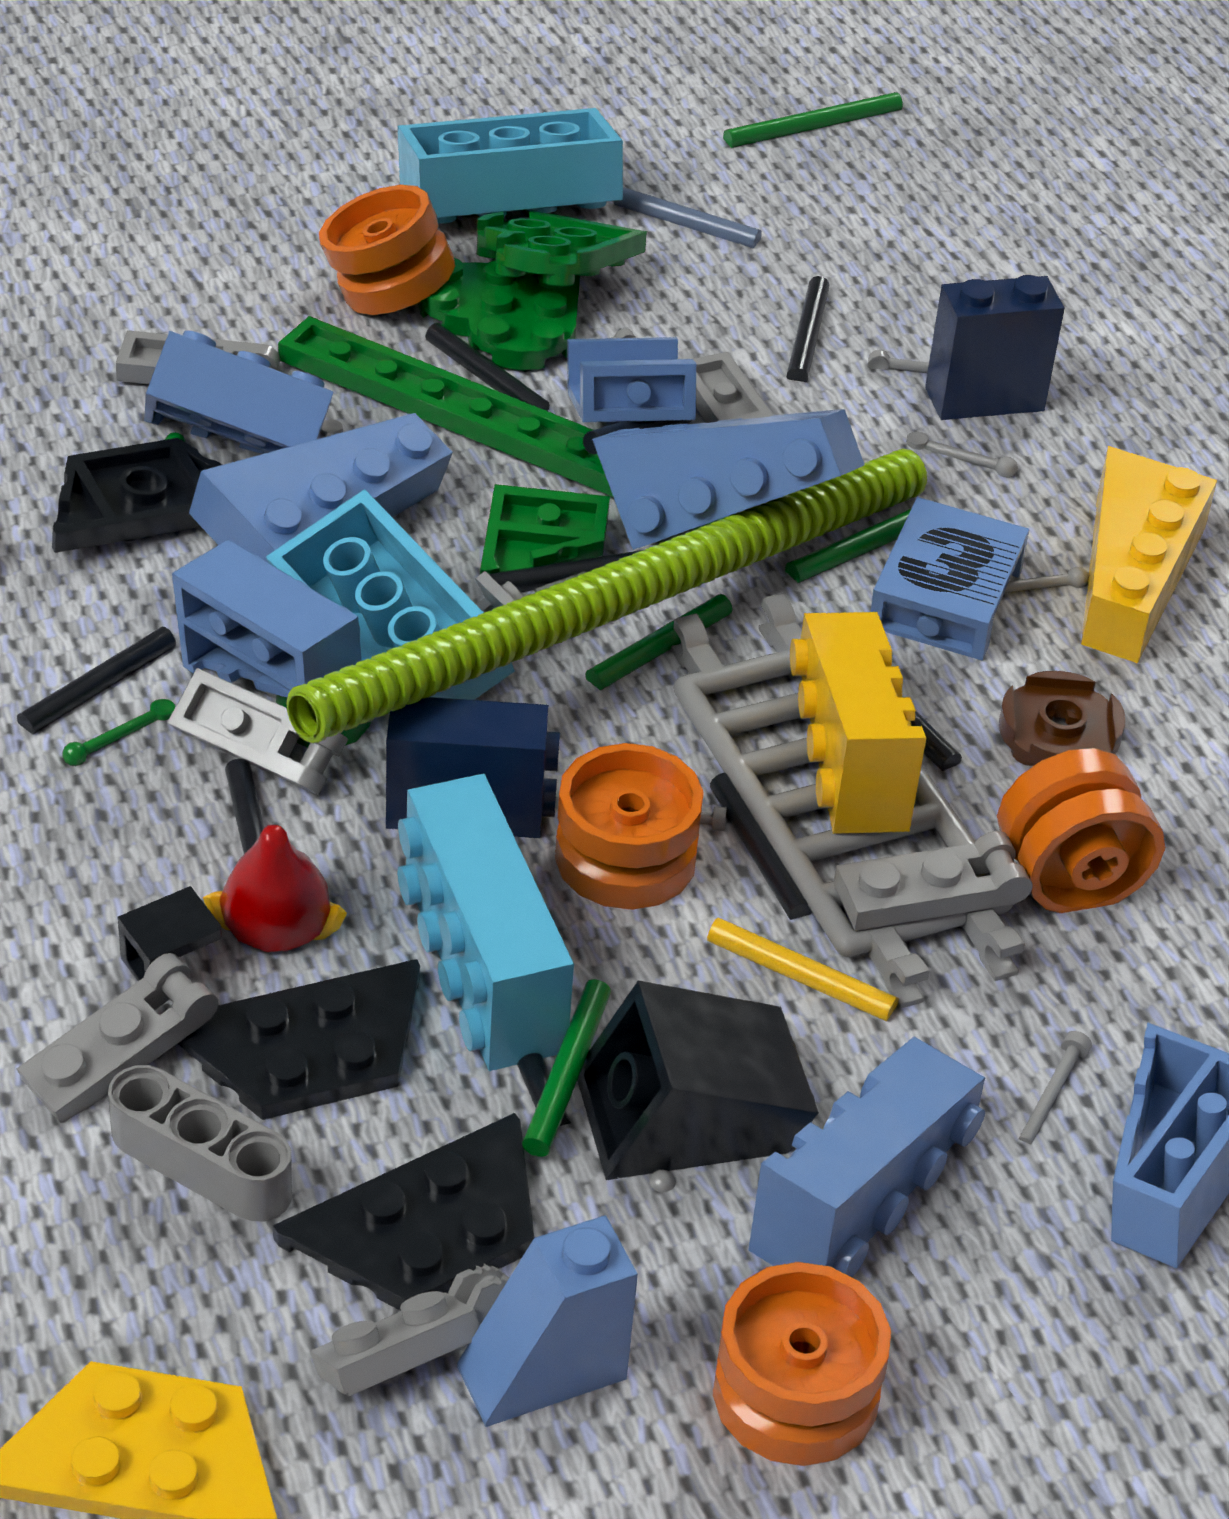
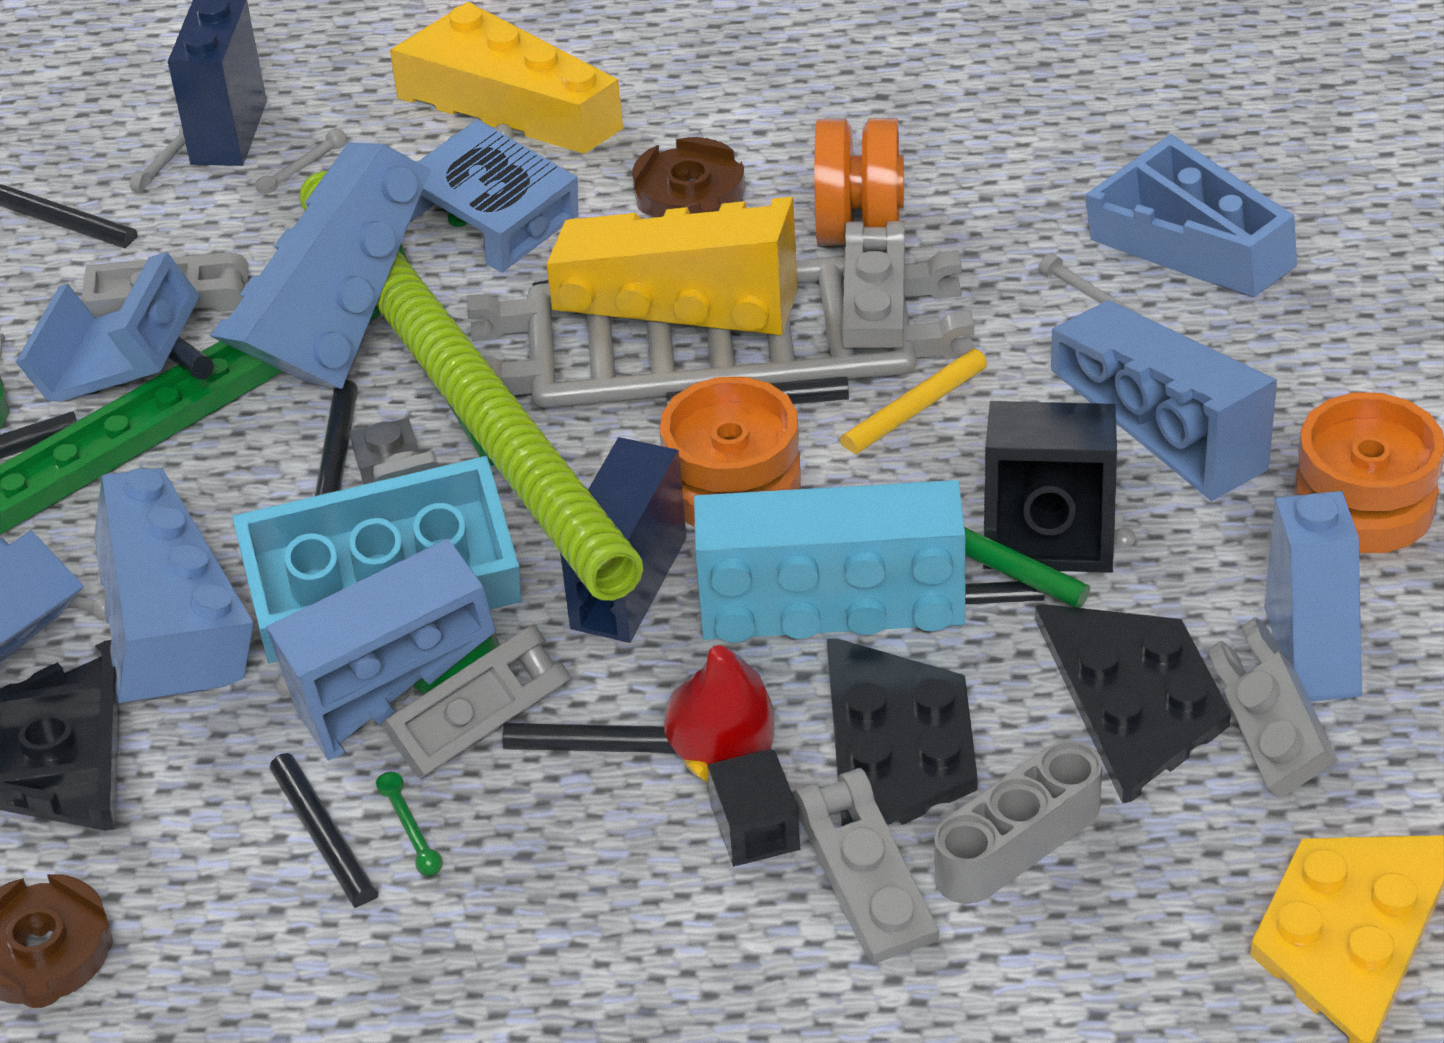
camera: 65 degrees left, 0 degrees up
(542, 528) = (270, 448): green wing -> none

